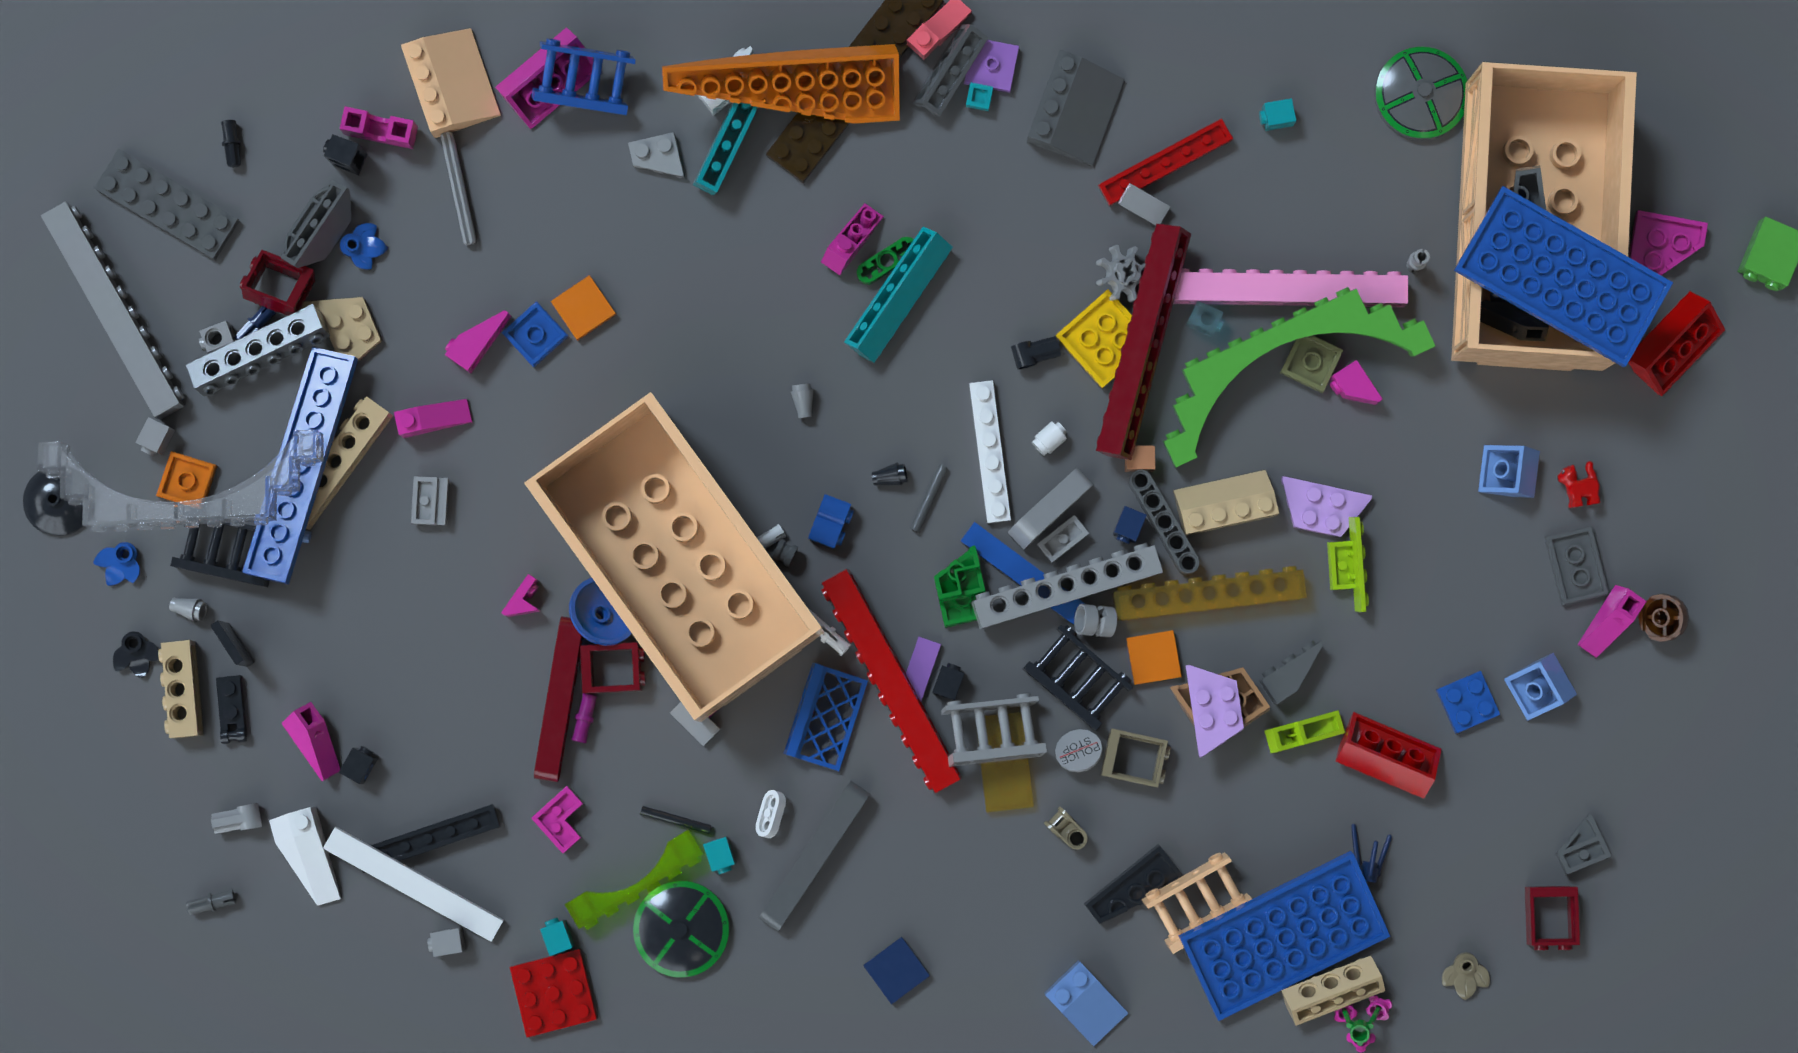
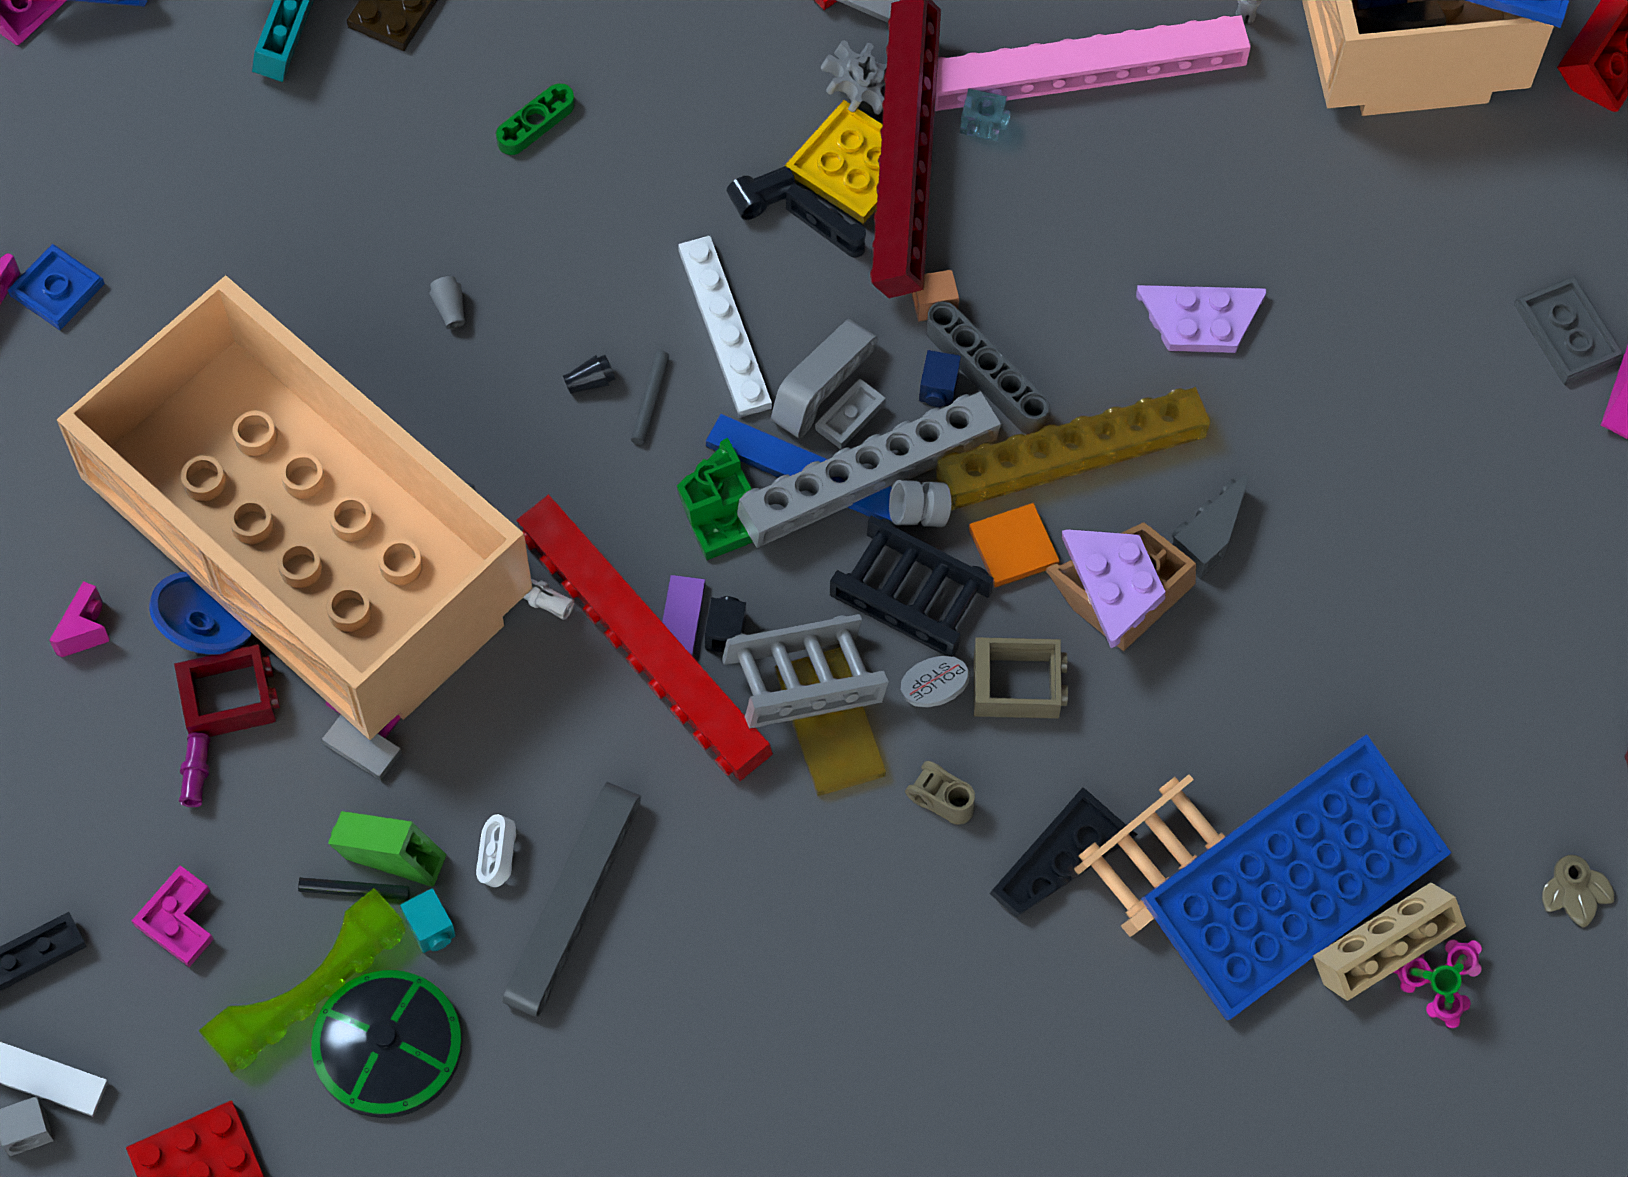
camera: 15 degrees left, 20 degrees down
(556, 936) = (194, 1086): teal brick -> none
(558, 702) = (153, 752): dark red beam -> none
(583, 307) = (120, 243): orange tile -> none
(657, 154) = (197, 46): light grey wing -> none
(700, 799) = (388, 846): none -> bright green slope
(805, 711) = (524, 698): blue fence -> none
(830, 522) = (515, 446): blue brick -> none
(851, 239) = (479, 100): dark pink slope -> none
(896, 970) = (727, 1042): dark blue tile -> none
(898, 294) = (558, 150): teal brick -> none
(1049, 438) = (804, 291): white brick -> none
(1076, 385) = (826, 221): none -> black plate
(1086, 1003) = (1024, 1032): medium blue slope -> none
(1225, 502) = (1070, 333): tan slope -> none
(1304, 731) = (1251, 601): lime slope -> none
(1311, 362) = (1140, 142): olive plate -> none
(1339, 315) = (1159, 71): bright green arch -> none
(1346, 564) = (1256, 376): lime bracket -> none
(1354, 385) = (1207, 159): dark pink slope -> none
(1370, 869) = (1401, 766): dark blue plant -> none
(1389, 755) = (1380, 612): red slope -> none
(1467, 702) = (1471, 525): blue plate -> none
(1509, 470) = (1443, 226): medium blue slope -> none
(1540, 686) = (1566, 484): medium blue slope -> none
(1577, 489) = (1545, 233): red animal -> none

